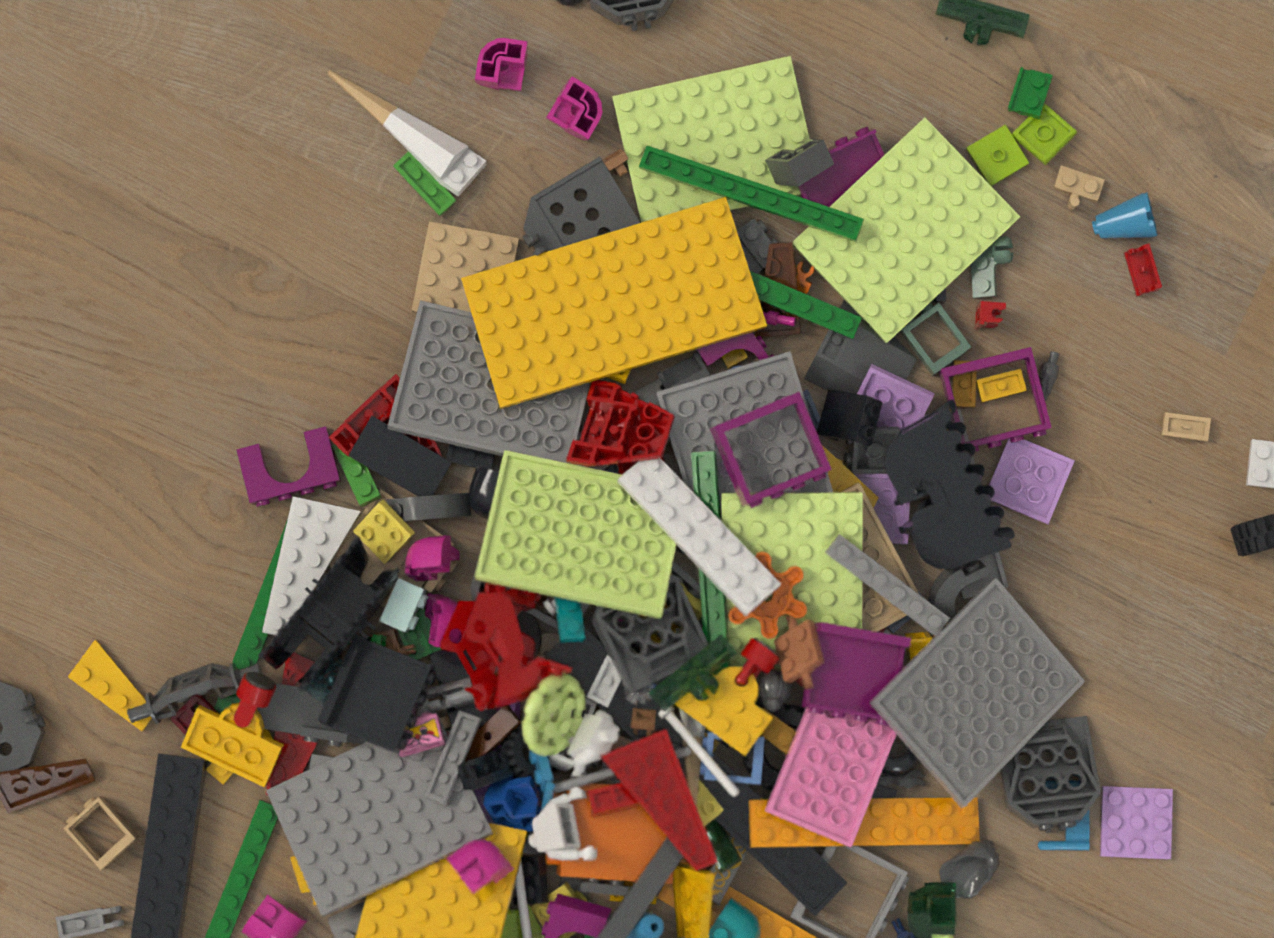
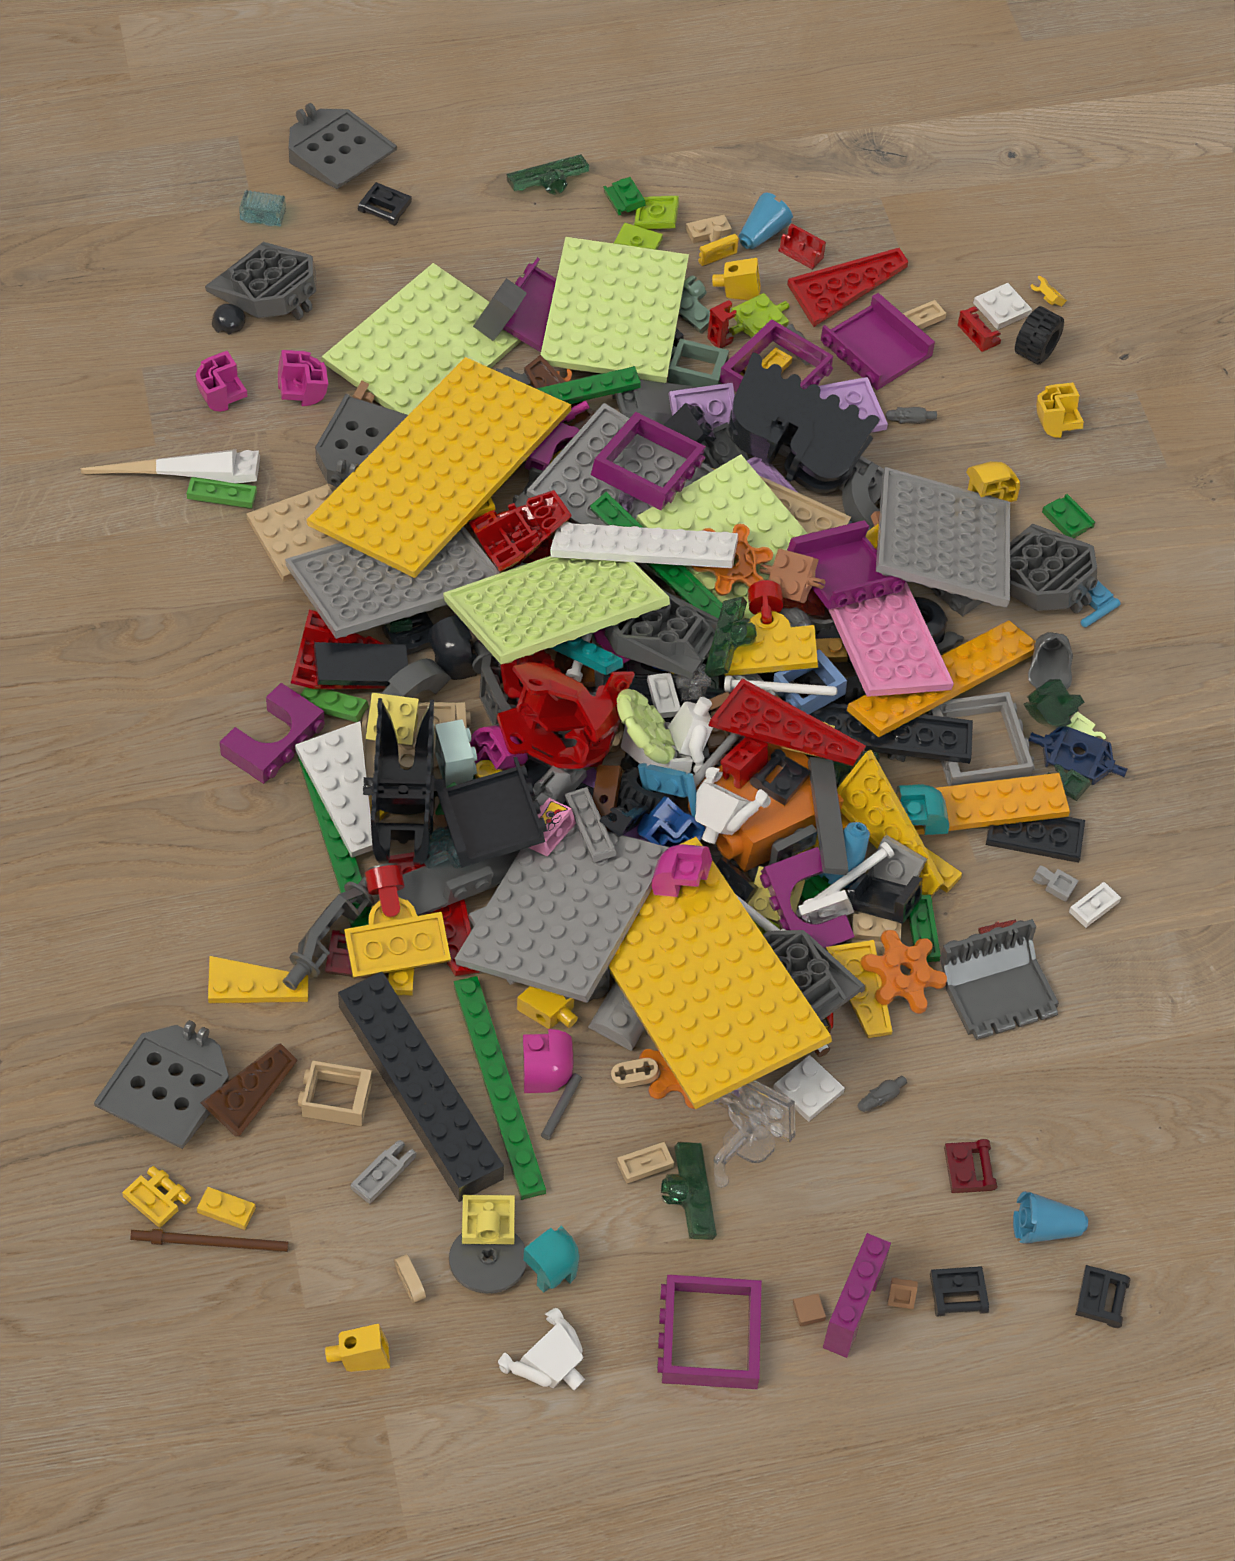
camera: 45 degrees left, 30 degrees down
(422, 631) = (485, 768): none -> yellow tile
(430, 557) = (449, 700): dark pink brick -> none
(634, 838) = (786, 782): none -> black plate
(751, 193) = (481, 344): green plate -> none
(887, 585) = (813, 504): light grey plate -> none
(1037, 321) = (756, 313): none -> lime plate
(1056, 277) = (740, 279): none -> yellow torso
(1063, 219) = (718, 249): none -> yellow tile
(1081, 526) = (910, 415): none -> dark grey piece
(1082, 654) = (995, 480): none -> yellow brick
(1118, 426) = (879, 342): none -> magenta panel
(1125, 731) = (1068, 516): none -> green plate
(1135, 336) = (835, 287): none -> red wing
(1136, 822) = (1136, 567): lavender plate -> none
(1210, 622) = (1059, 409): none -> yellow brick
(1224, 477) = (977, 330): none -> red hinge

